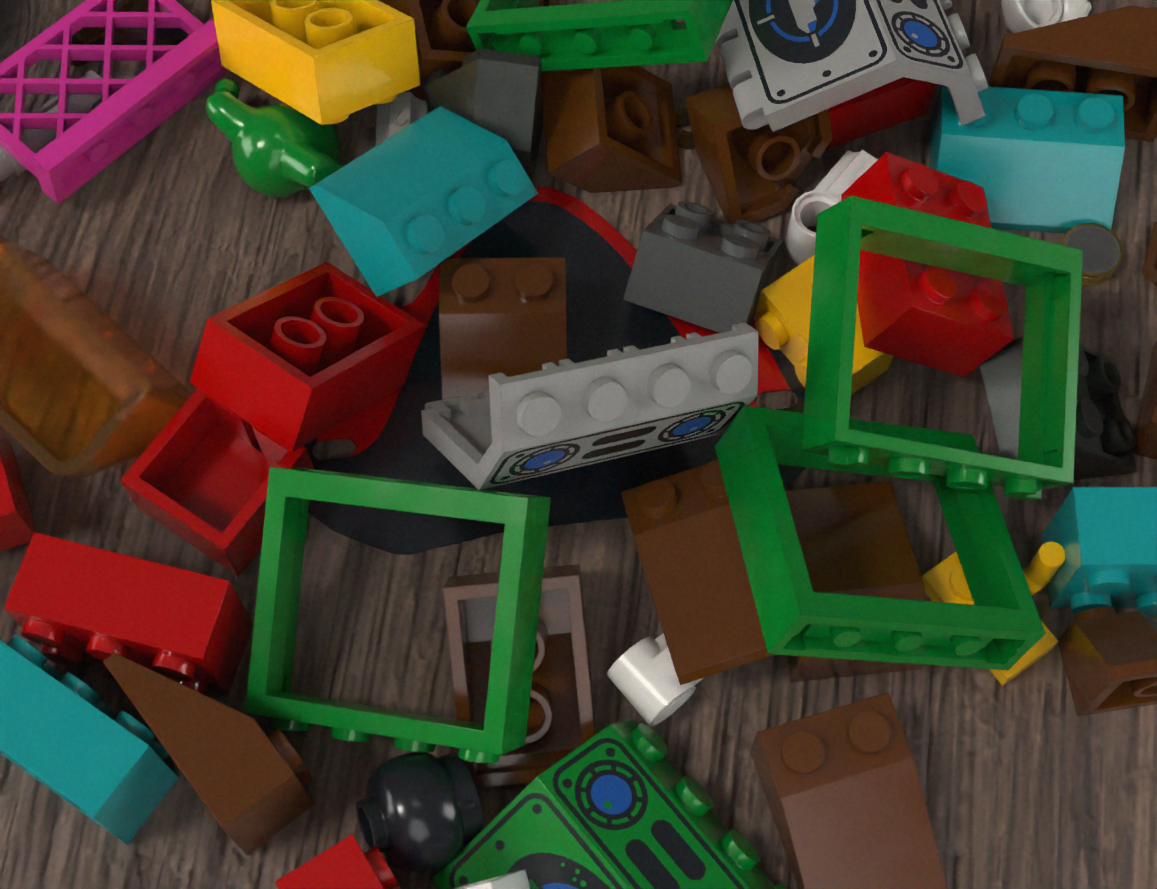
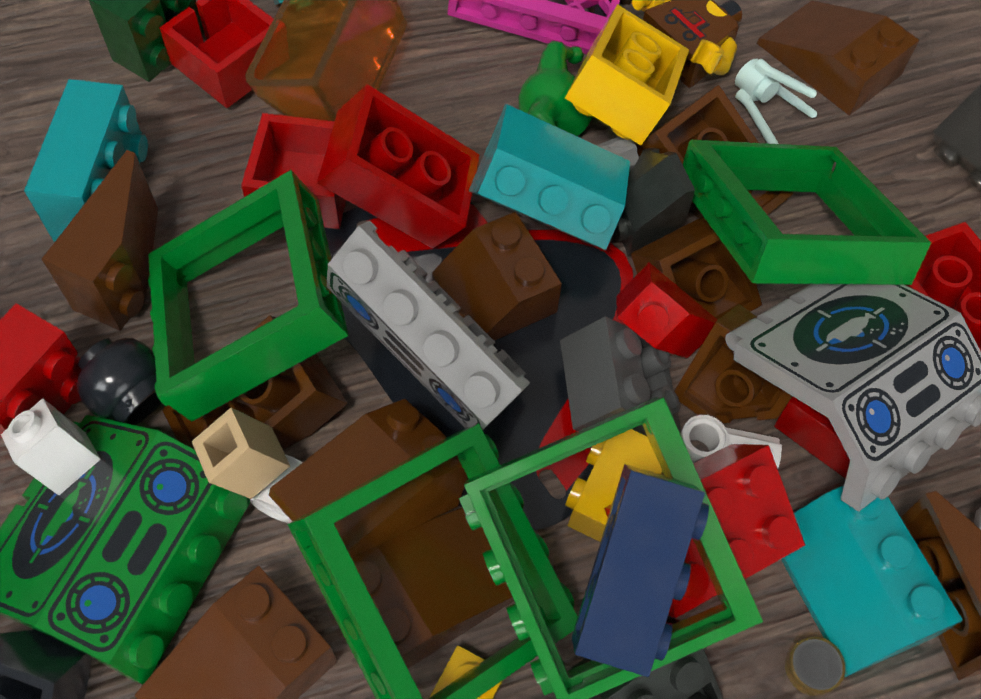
camera: 60 degrees right, 5 degrees down
(104, 603) = (178, 157): red brick -> none
(616, 693) = (240, 453): none -> tan brick
(647, 177) = (663, 313): none -> red slope
(1000, 322) = (639, 571): none -> dark blue brick

